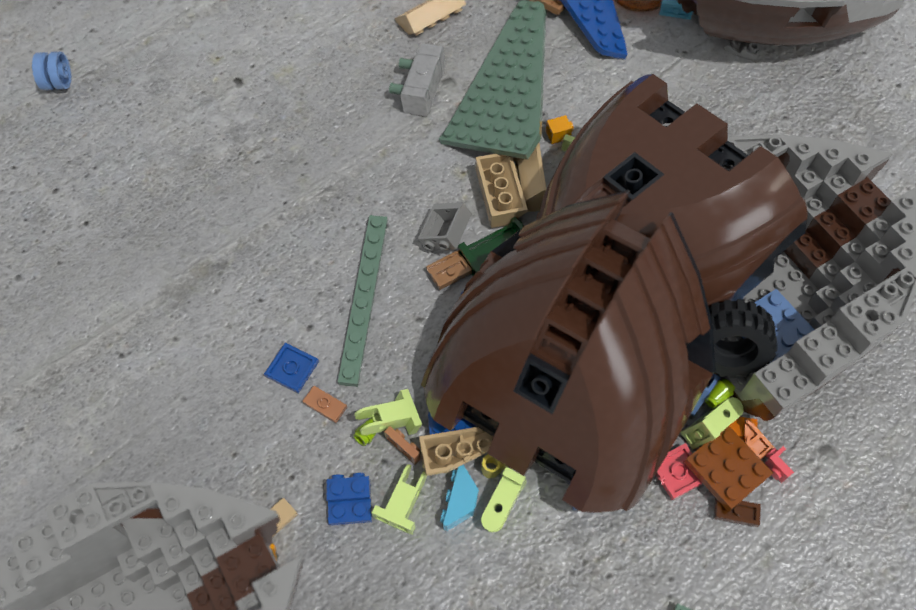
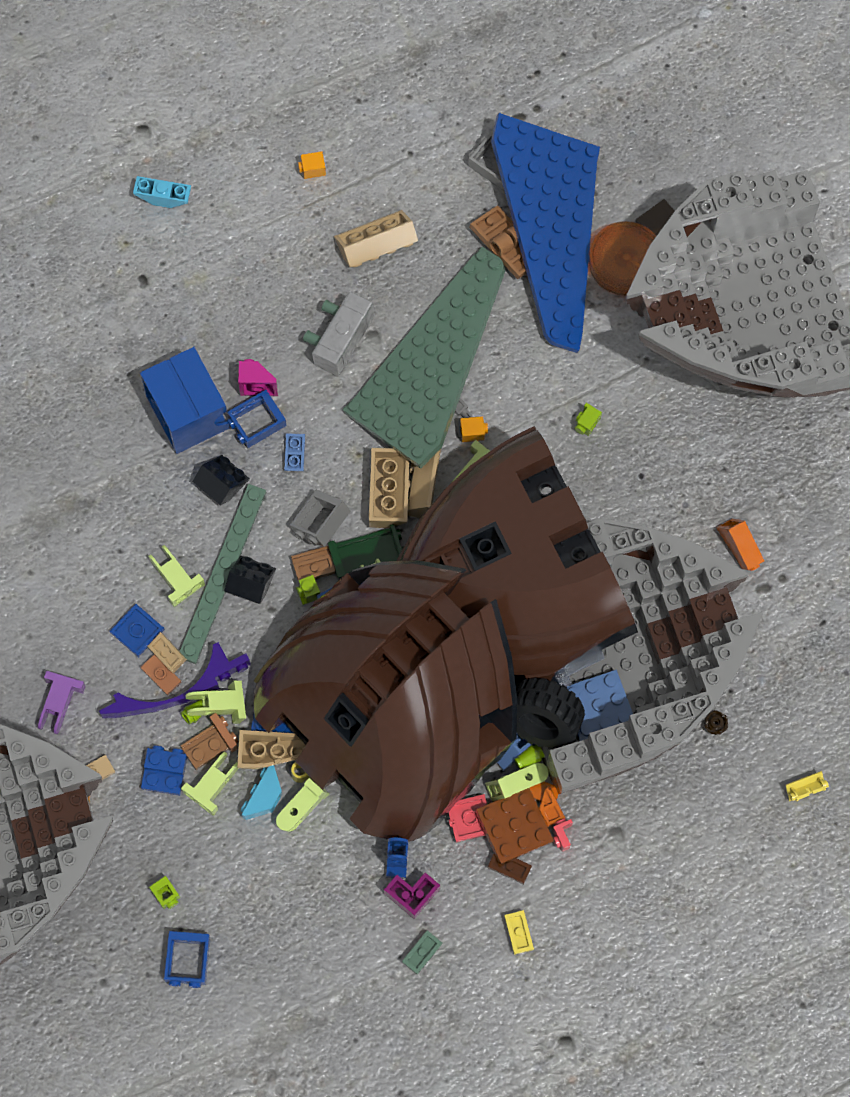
camera: 10 degrees right, 10 degrees up
(223, 451) = (59, 697): none -> medium lavender piece
(240, 12) = (161, 192): none -> medium azure slope
(293, 152) = (185, 400): none -> blue piece
(320, 309) = (177, 578): none -> yellowish green piece
(326, 381) = (167, 652): none -> tan plate
(342, 216) = (220, 479): none -> black slope
(356, 128) = (255, 378): none -> dark pink slope
(364, 144) = (261, 398): none -> blue window
(381, 385) = (218, 670): none -> dark purple slope
(385, 465) = (204, 747): none -> medium nougat plate
(391, 295) = (249, 579): none -> black slope
(405, 181) = (294, 452): none -> medium blue slope
(450, 291) = (308, 590): none -> lime brick
(620, 529) = (397, 857): none -> blue piece
(651, 571) = (413, 898): none -> magenta brick
(774, 580) = (519, 932): none -> light yellow plate

